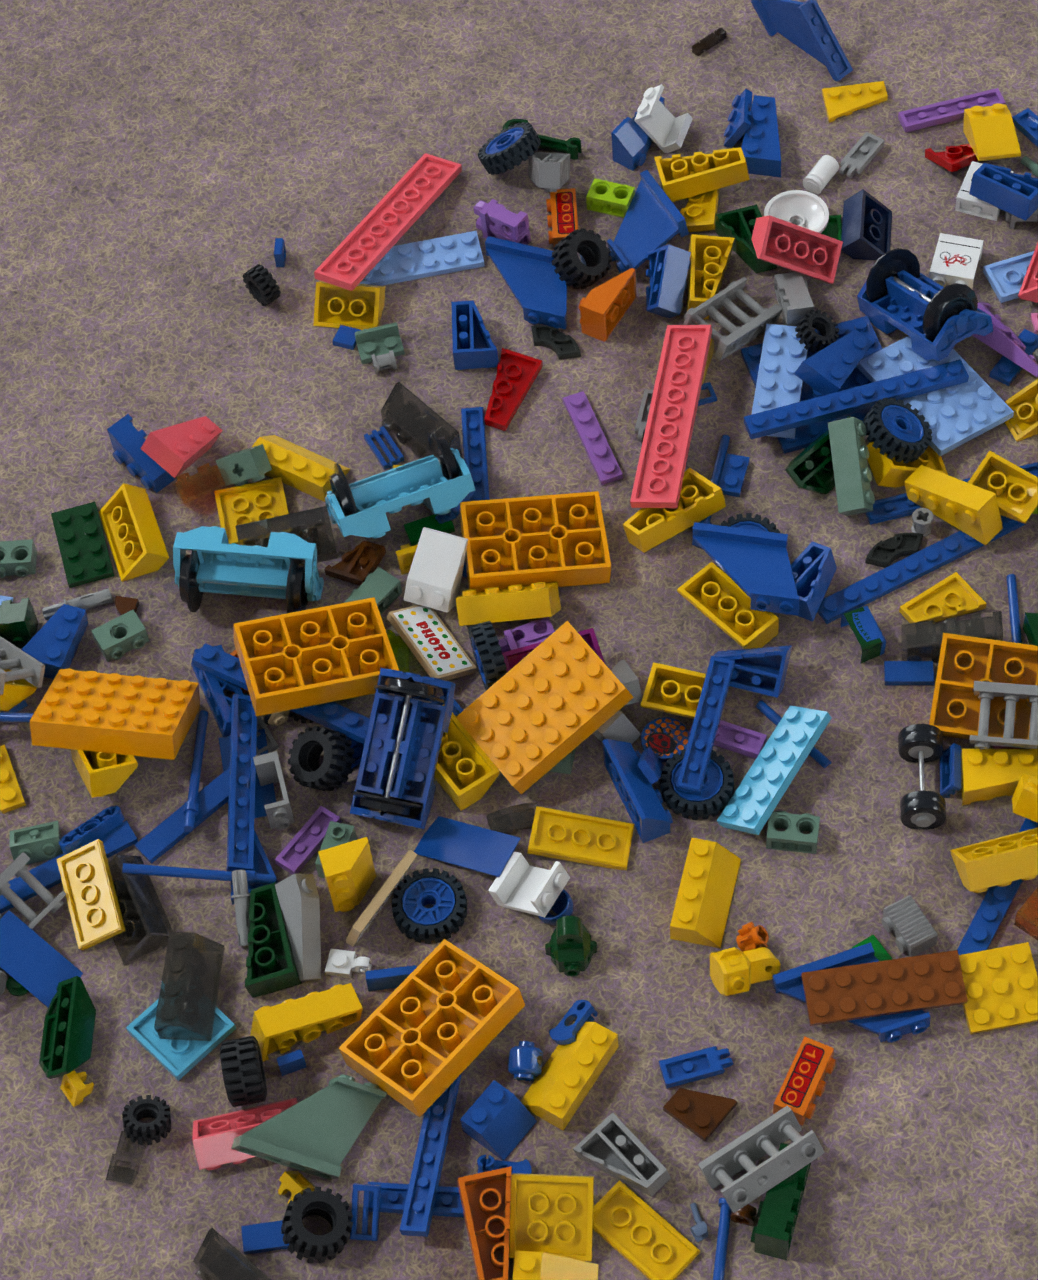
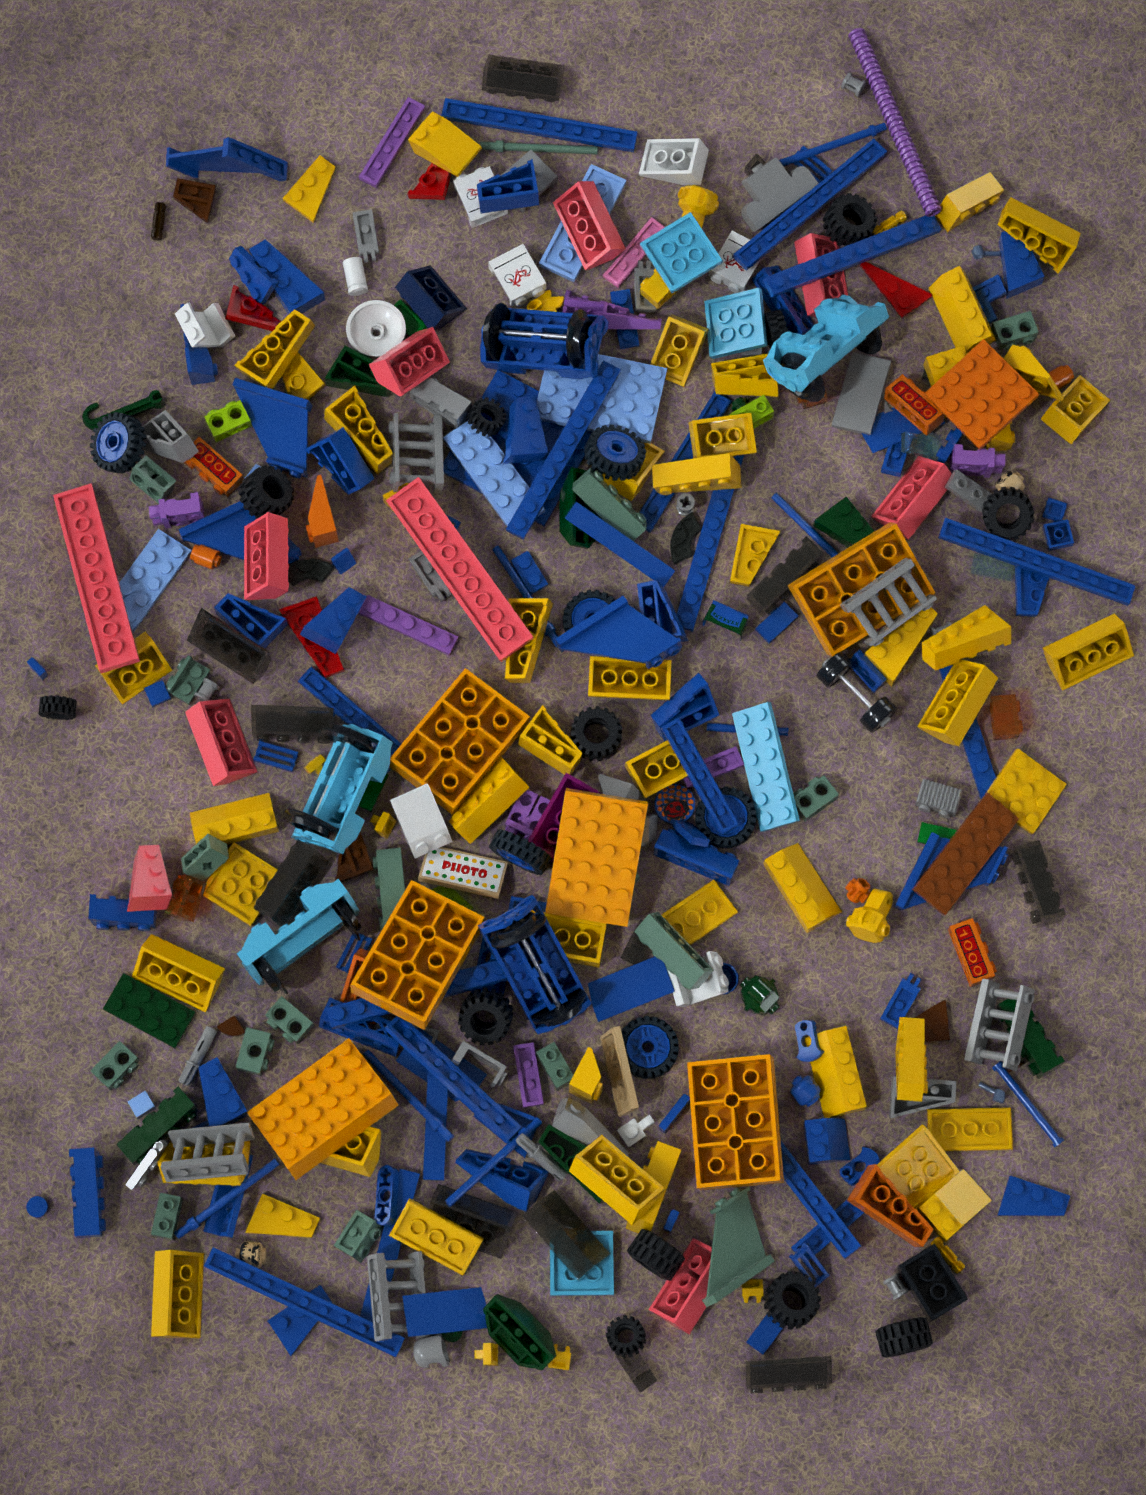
camera: 50 degrees left, 20 degrees up
(25, 1028) = (488, 1354): none -> yellow tile
(176, 636) = (293, 1016): none -> sand green brick
(197, 903) = (510, 1182): none -> blue wedge
(274, 969) = (616, 1179): none -> yellow slope
(354, 402) = (220, 741): none -> coral slope
(432, 340) = (229, 647): none -> clear smoke slope
(489, 272) = (206, 556): none -> orange brick
(508, 189) = (152, 479): none -> sand green brick
(530, 837) = (673, 951): none -> sand green brick
(531, 298) = (266, 557): none -> coral slope
(535, 382) = (334, 621): none -> blue wedge
(591, 353) = (343, 561): none -> blue slope
(607, 603) = (549, 743): none -> yellow wedge
(641, 1109) = (911, 1059): none -> yellow wedge
(655, 644) = (601, 717): none -> black tyre
(707, 135) = (249, 312): none -> red wing
(755, 44) = (195, 197): none -> reddish brown wing
(829, 502) = (619, 543): none -> blue tile
(928, 1077) = (1038, 884): none -> clear smoke wedge

